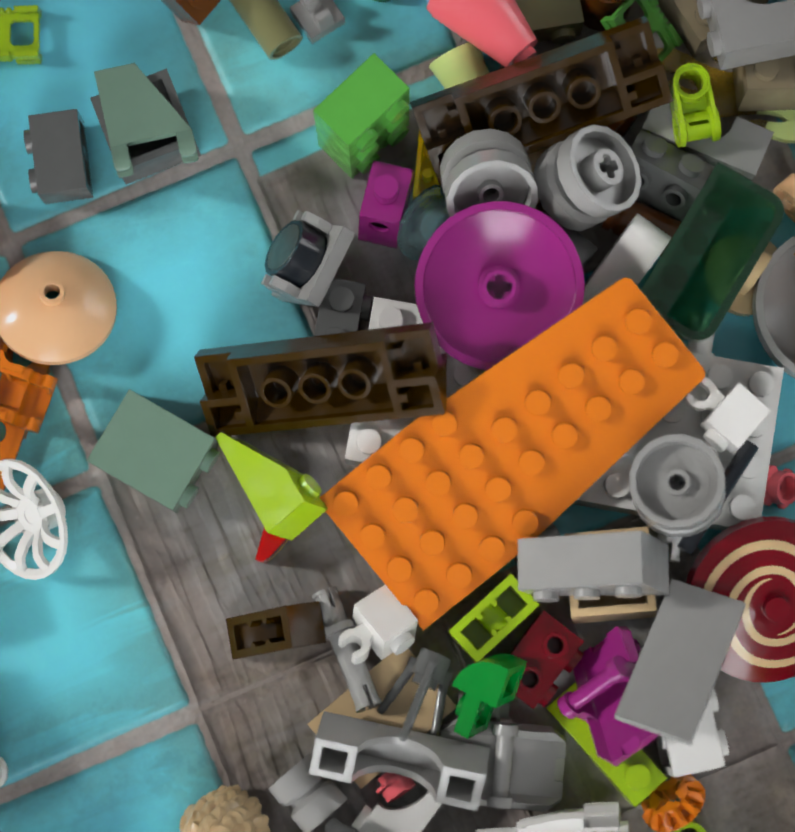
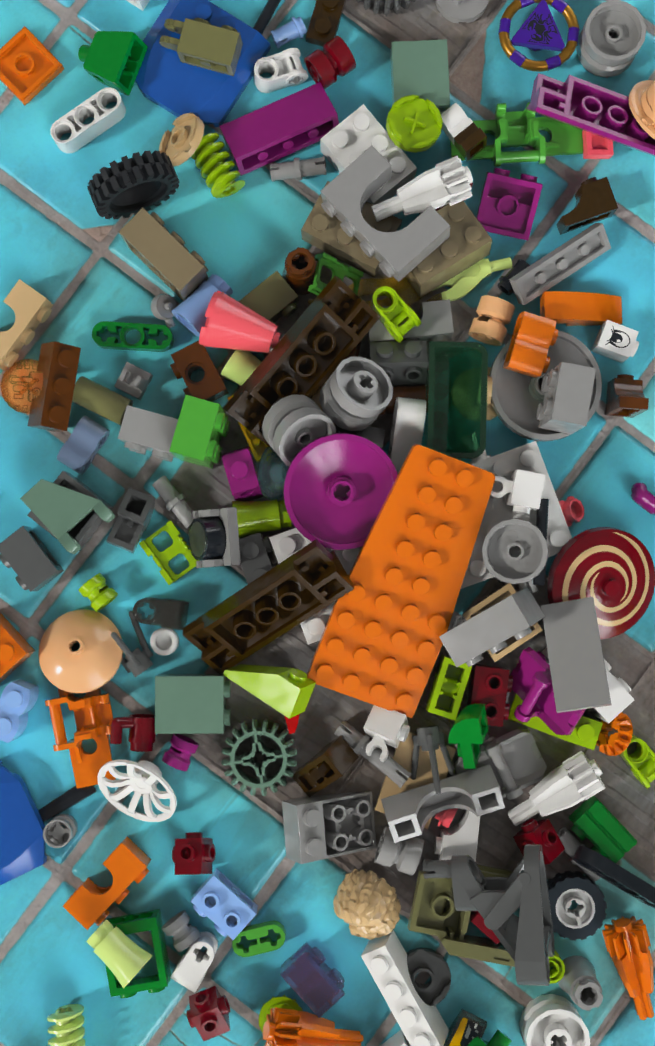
camera: 30 degrees left, 5 degrees up
(43, 644) = (193, 854): none -> dark red brick
(43, 731) = (224, 904): none -> light blue brick
(60, 814) = (260, 945): none -> bright green beam
(69, 450) = (141, 731): none -> dark red piece
(103, 505) = (180, 752): none -> magenta wheel
(118, 360) = (136, 660): none -> dark grey plant
(119, 247) = (98, 592): none -> lime wheel
(166, 357) = (164, 641): none -> white tile
(189, 321) = (167, 612): none -> clear smoke piece
(192, 587) = (247, 758): none -> sand green gear
(208, 56) = (83, 445): none -> sand blue axle
(215, 182) = (132, 520): none -> dark grey brick
(225, 252) = (162, 558): none -> lime piece
(237, 710) = (328, 826): none -> light grey slope
(281, 187) = (174, 501): none -> light grey pin
(297, 82) = (148, 431): none -> light grey brick
(378, 268) = (261, 516): none -> lime plant
(409, 28) = (193, 358): none -> reddish brown brick

